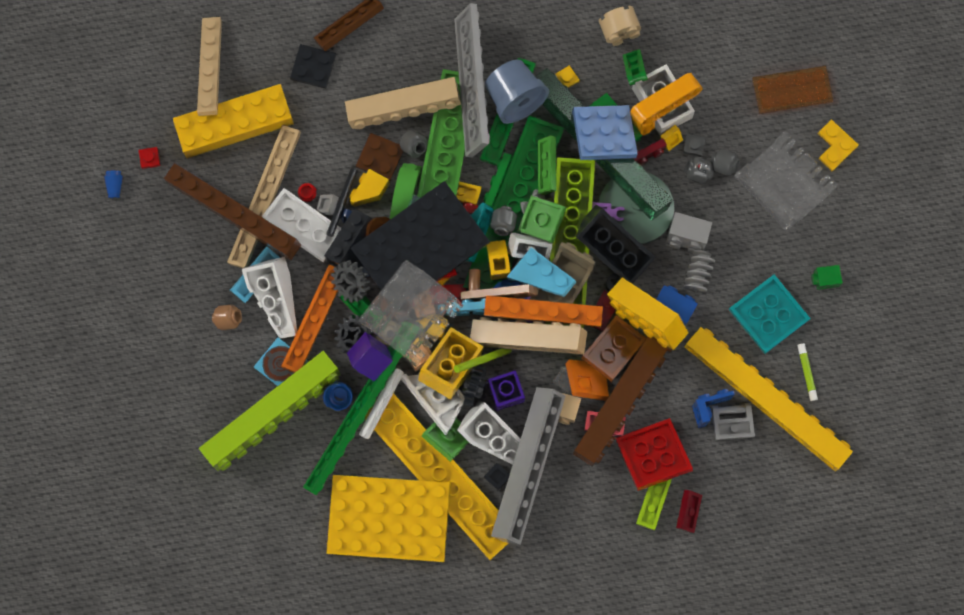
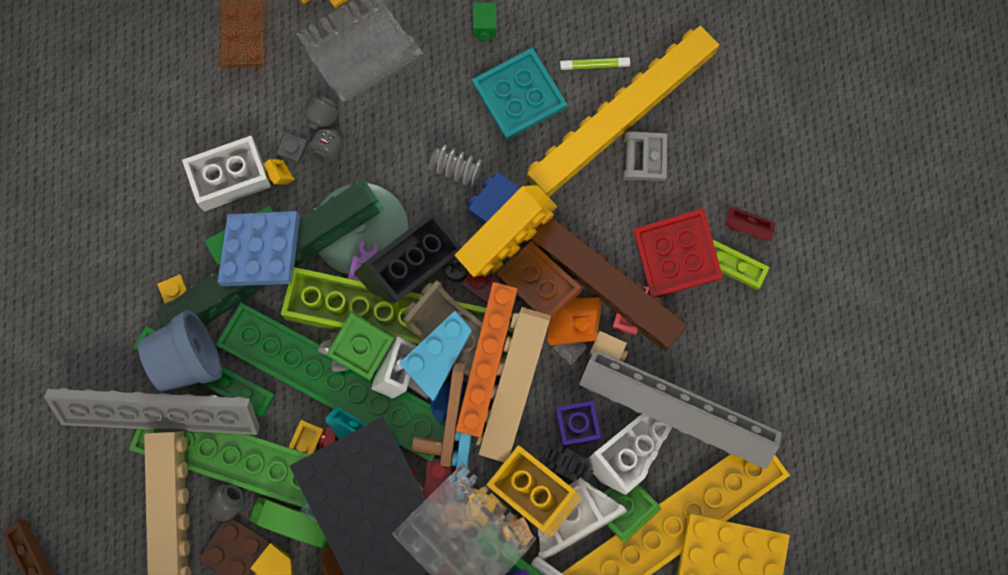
camera: 85 degrees left, 0 degrees up
(482, 359) = (537, 451): lime bar -> none
(497, 180) = (296, 397): green plate -> none
(497, 476) = (684, 451): black plate -> none
(498, 260) = (405, 409): yellow slope -> none
(503, 221) = (354, 396): dark grey head -> none
(547, 165) = (288, 329): bright green tile -> none
(620, 25) = (117, 210): tan brick -> none
(634, 67) = (177, 199): green plate -> none
(655, 149) = (291, 194): dark red plate -> none
(664, 101) = (232, 168): light orange beam -> none
(688, 232) = (406, 168): light grey brick -> none
(704, 413) = (628, 189): blue bracket -> none

